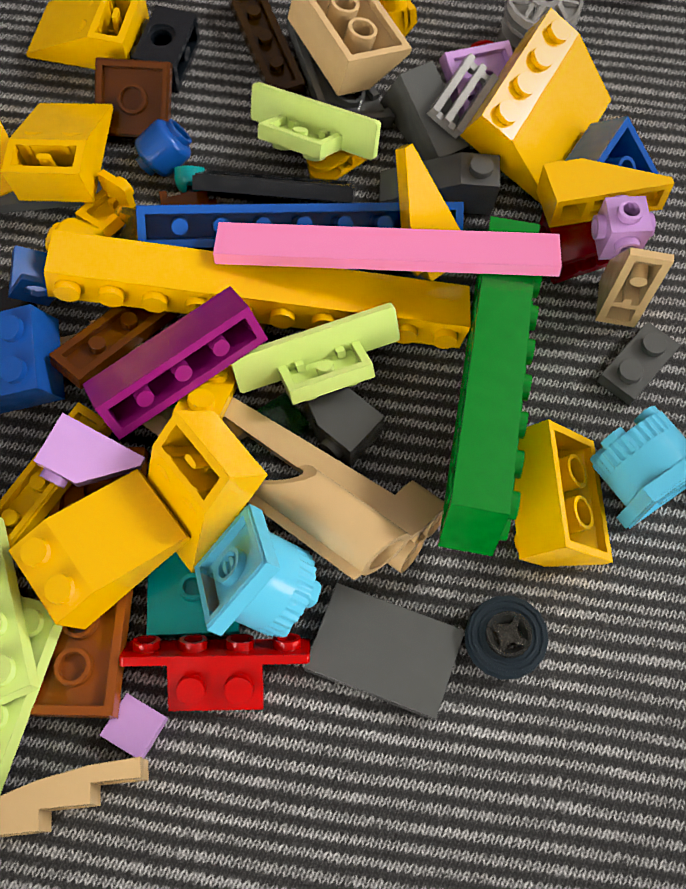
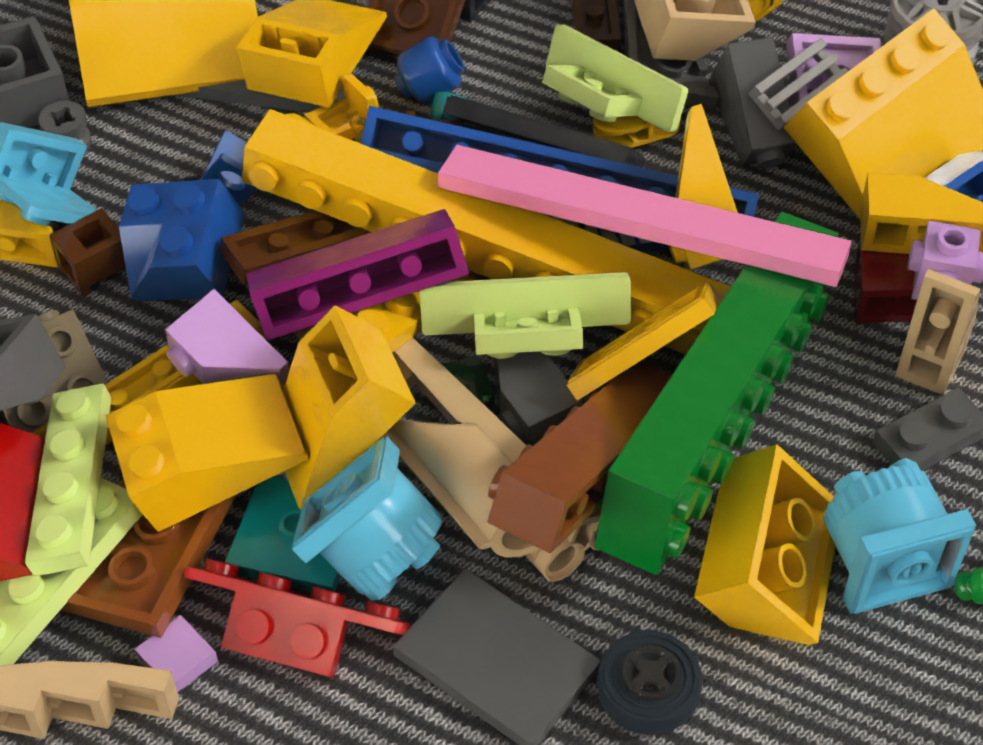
camera: 20 degrees right, 15 degrees down
(414, 480) = (566, 472): none -> dark orange brick
(420, 355) = (643, 339): none -> yellow tile
(459, 178) = (780, 175): dark grey slope -> none

